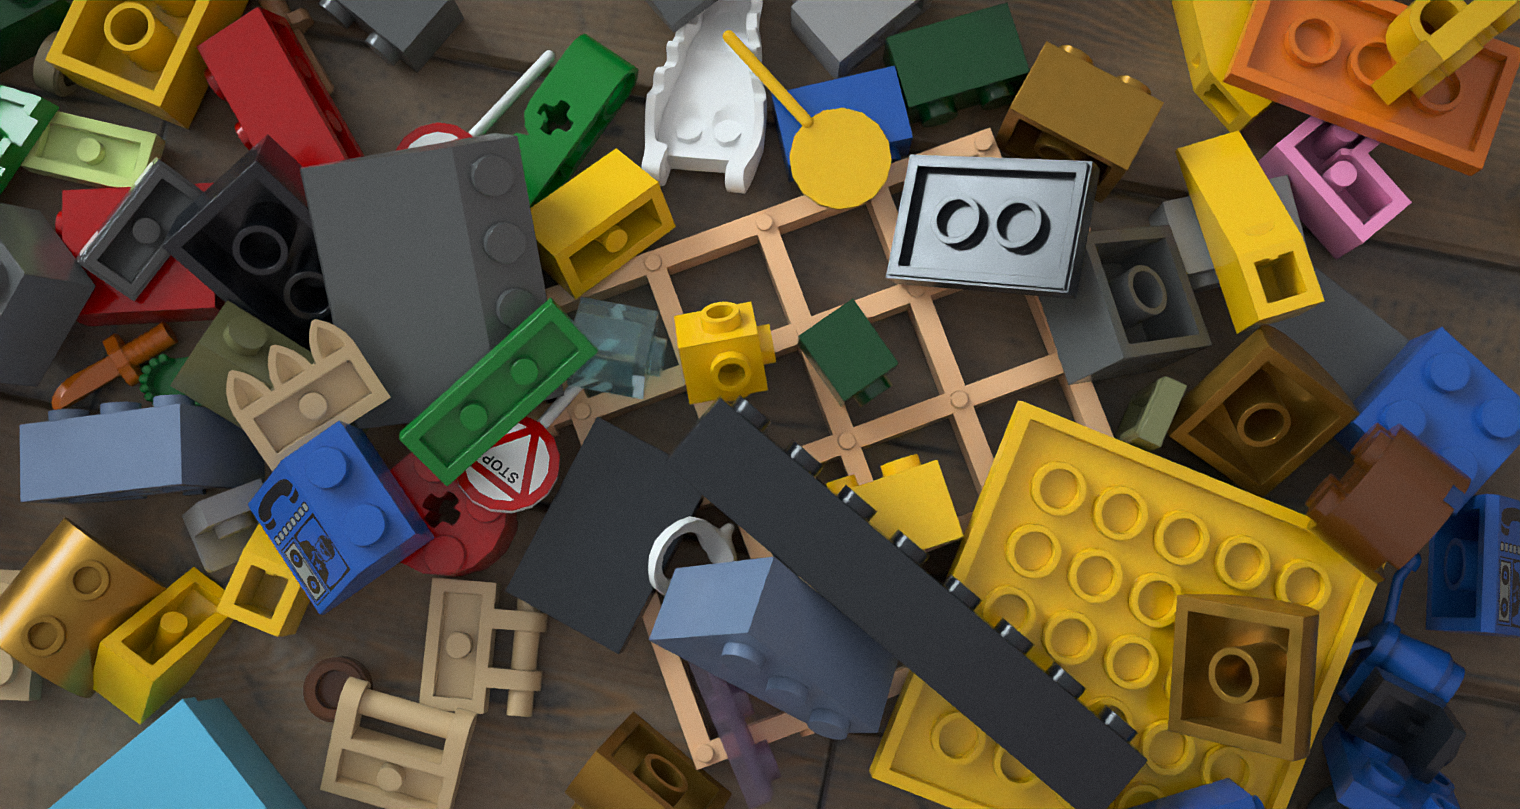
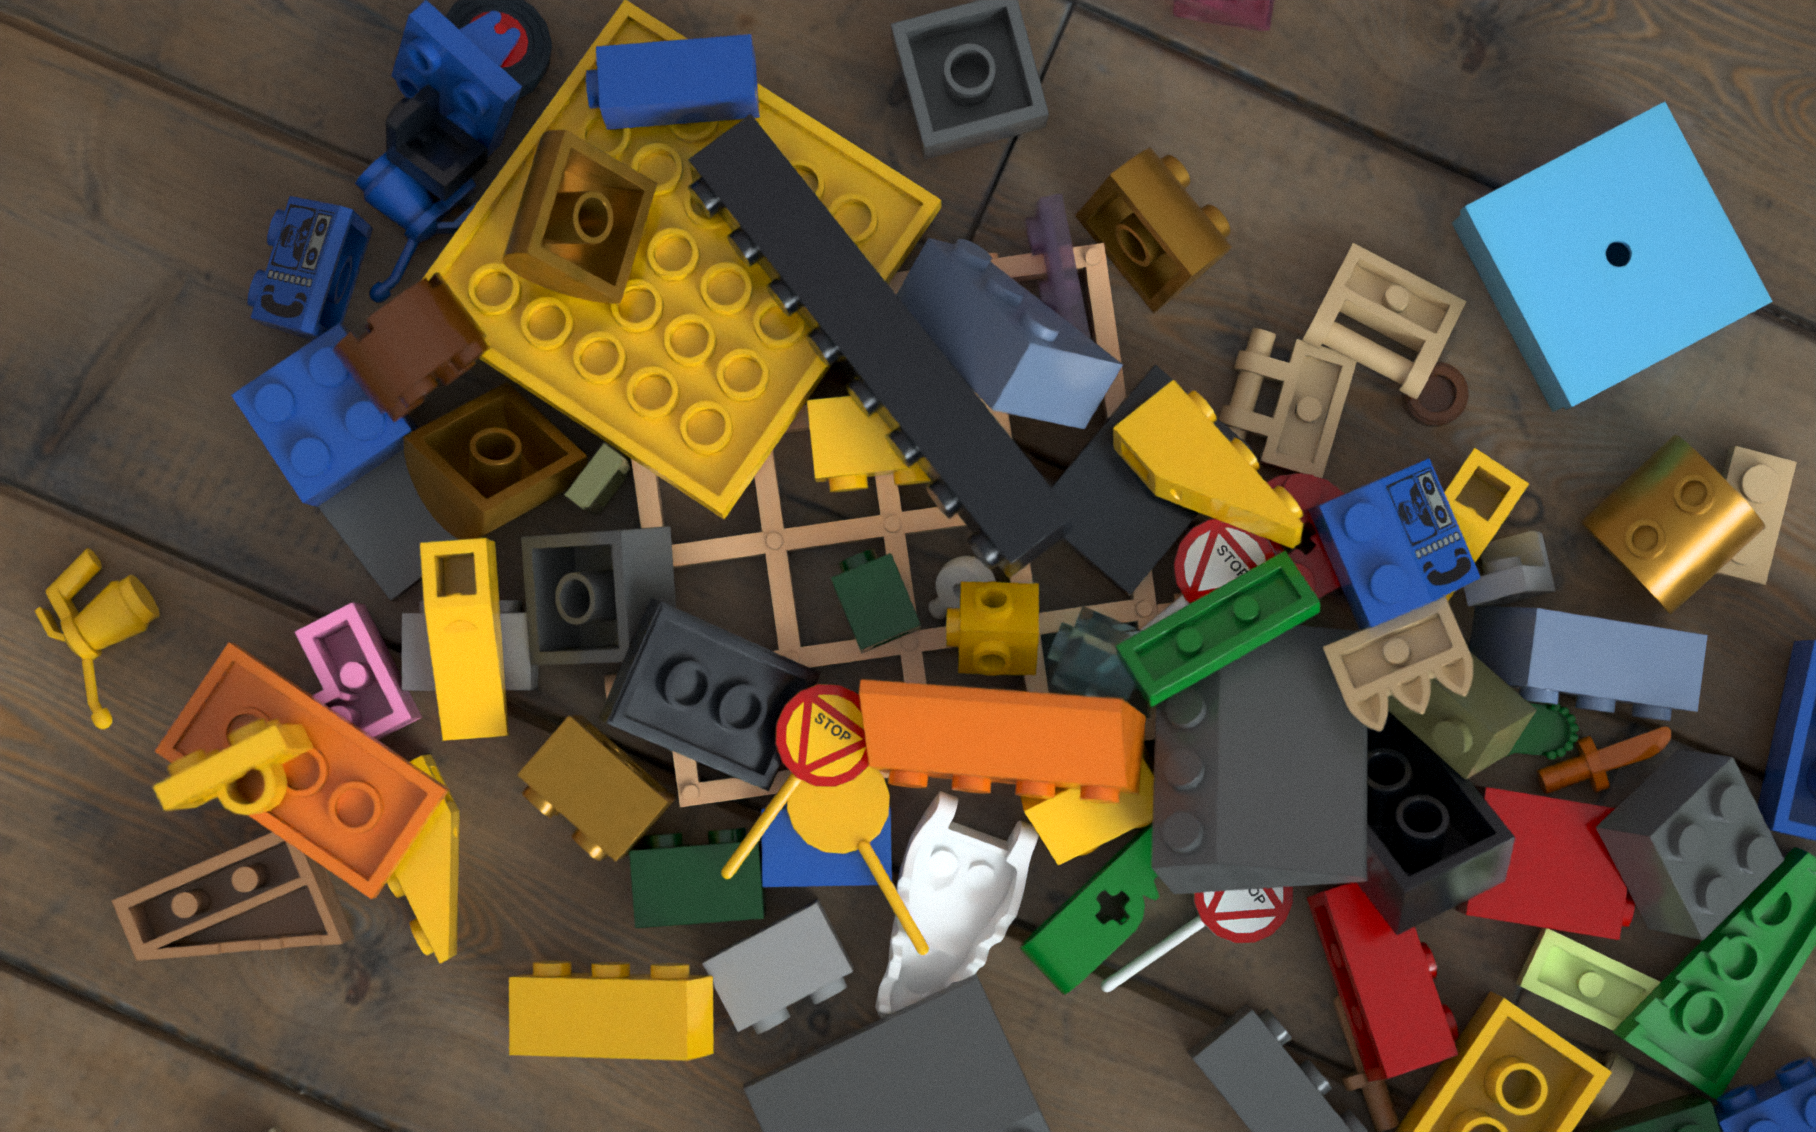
camera: 175 degrees left, 5 degrees up
(129, 242) = (1545, 880): dark grey slope -> none
(160, 646) = (1593, 471): yellow slope -> none
(555, 554) = (1193, 464): none -> yellow slope
(691, 238) = (1003, 738): none -> orange slope
(714, 541) = (1042, 452): white piece -> none
(778, 398) = (949, 581): none -> white piece
(868, 210) = (820, 743): none -> piece

